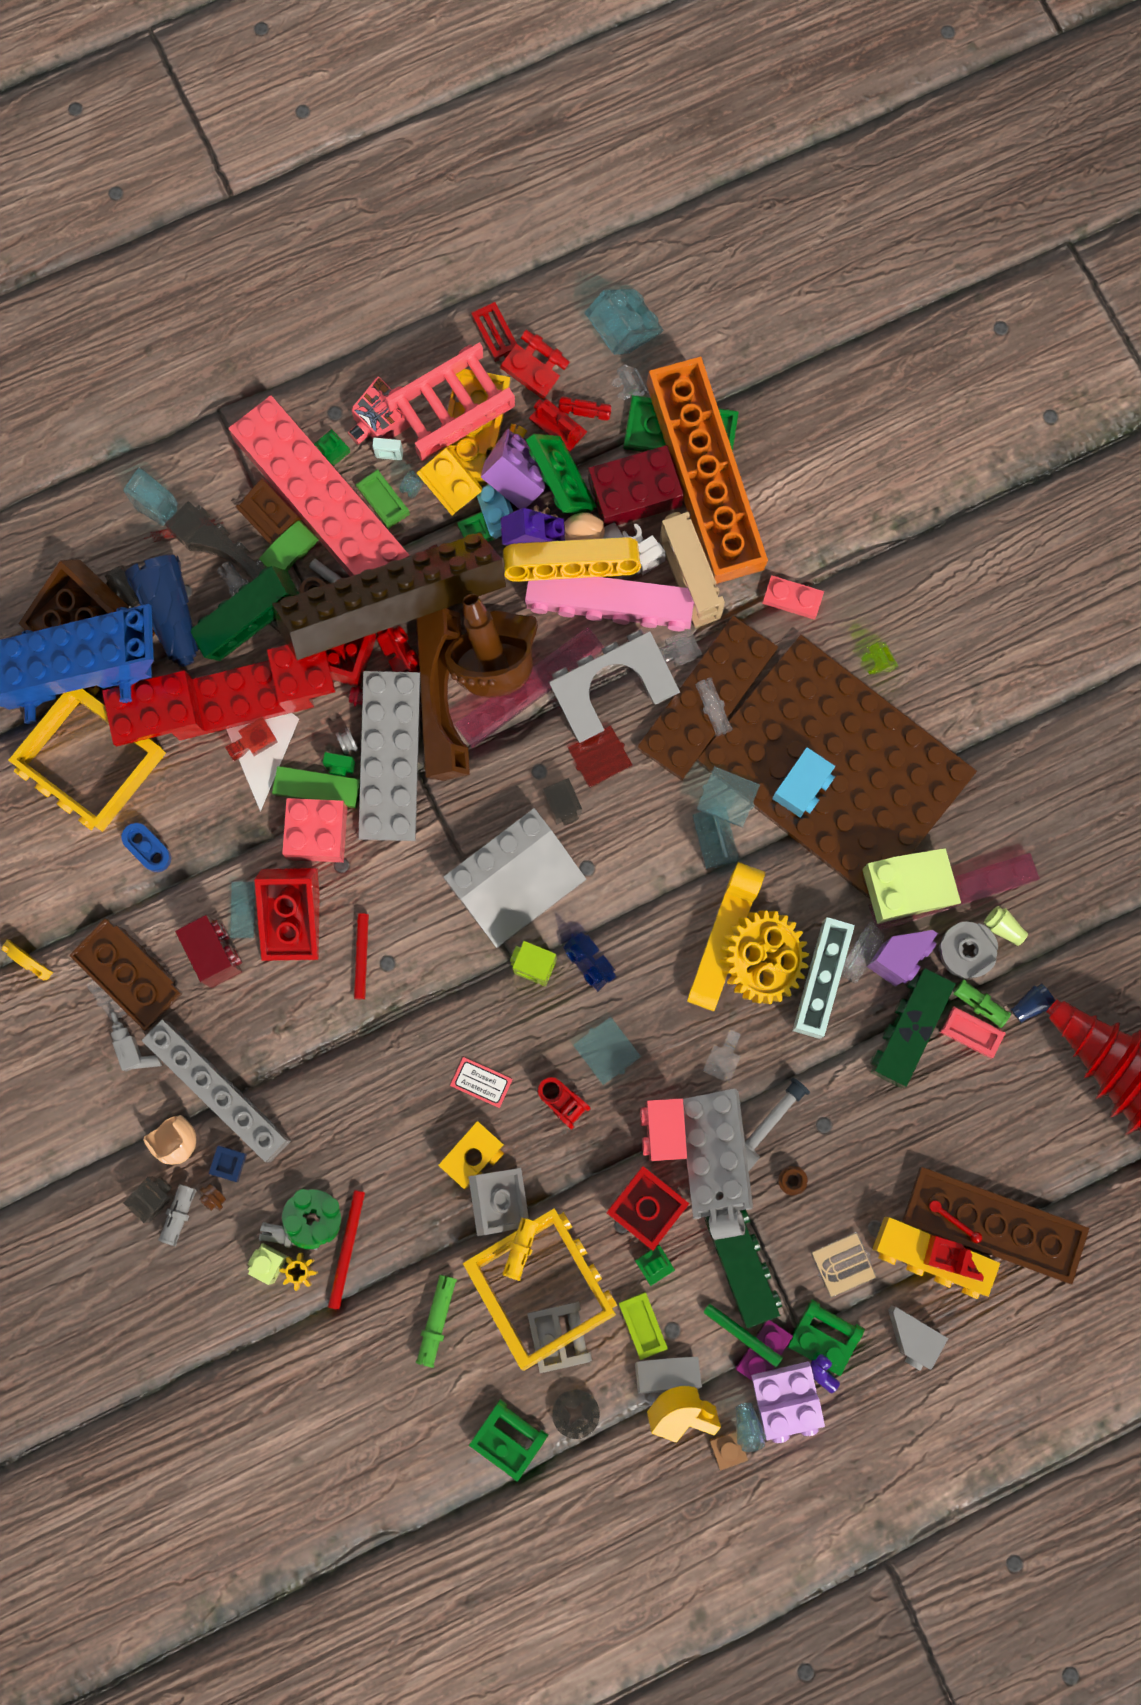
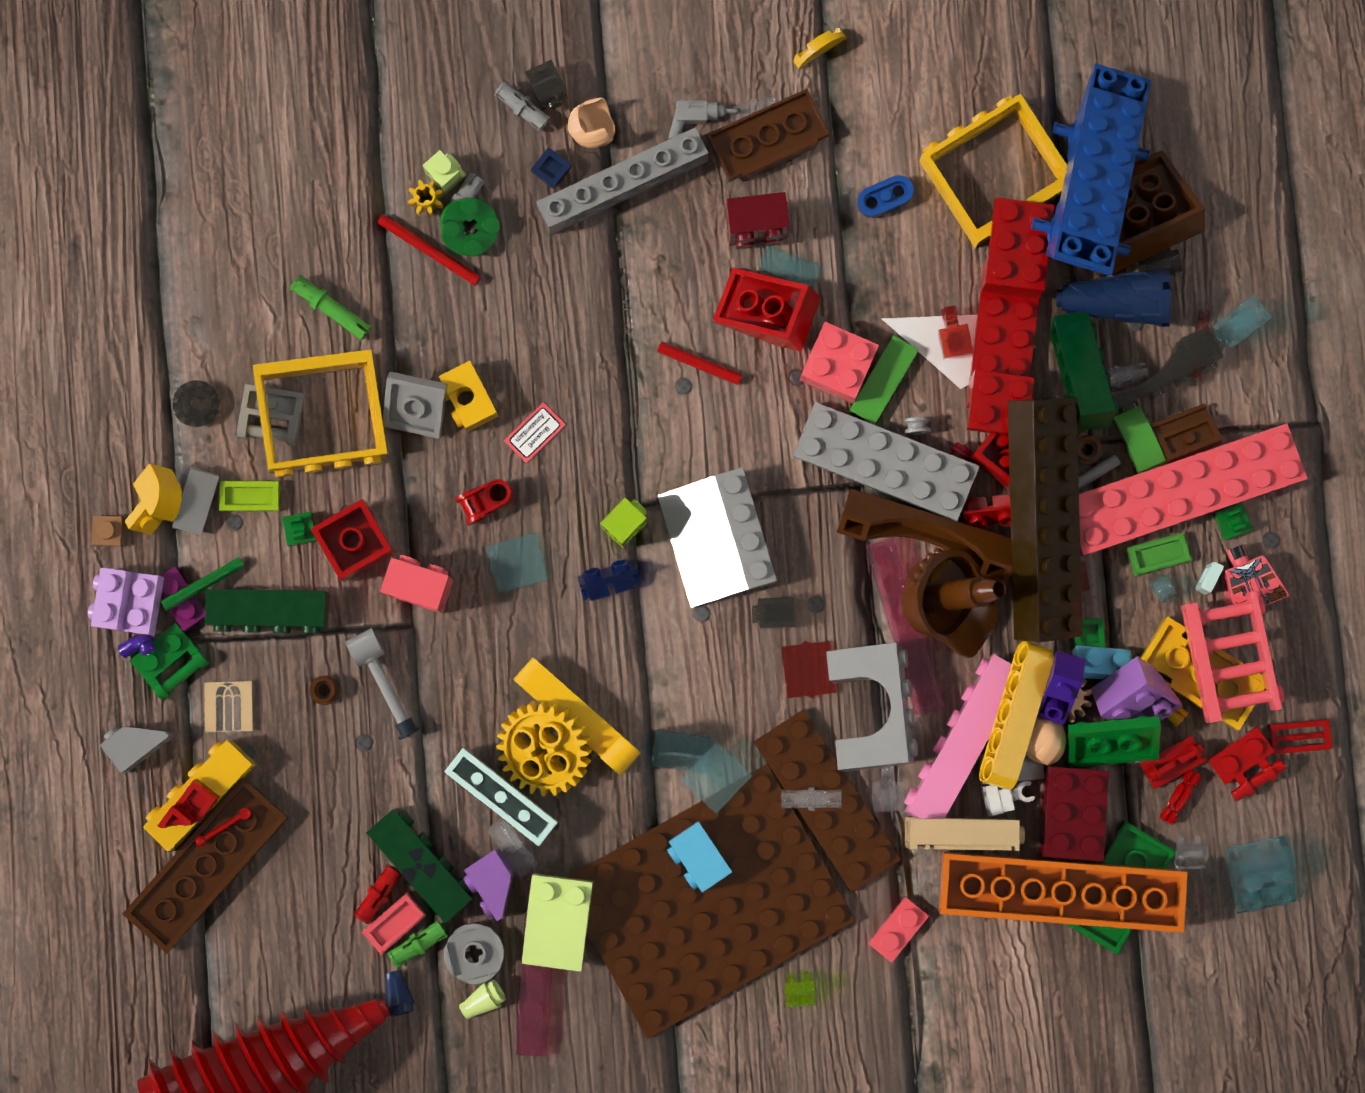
camera: 110 degrees right, 5 degrees up
(211, 1198) = (525, 142): reddish brown plate -> none
(338, 764) = (896, 409): green plate -> none
(449, 480) = (1149, 626): yellow plate -> none
(502, 1448) = (191, 326): green plate -> none
(520, 1249) = (361, 406): yellow pin -> none
(717, 1161) = (369, 622): light grey hinge -> none
(722, 1060) = (462, 668): clear plate -> none
(749, 1429) = (117, 556): clear light blue cone -> none
(954, 1056) = (378, 894): none -> red pin

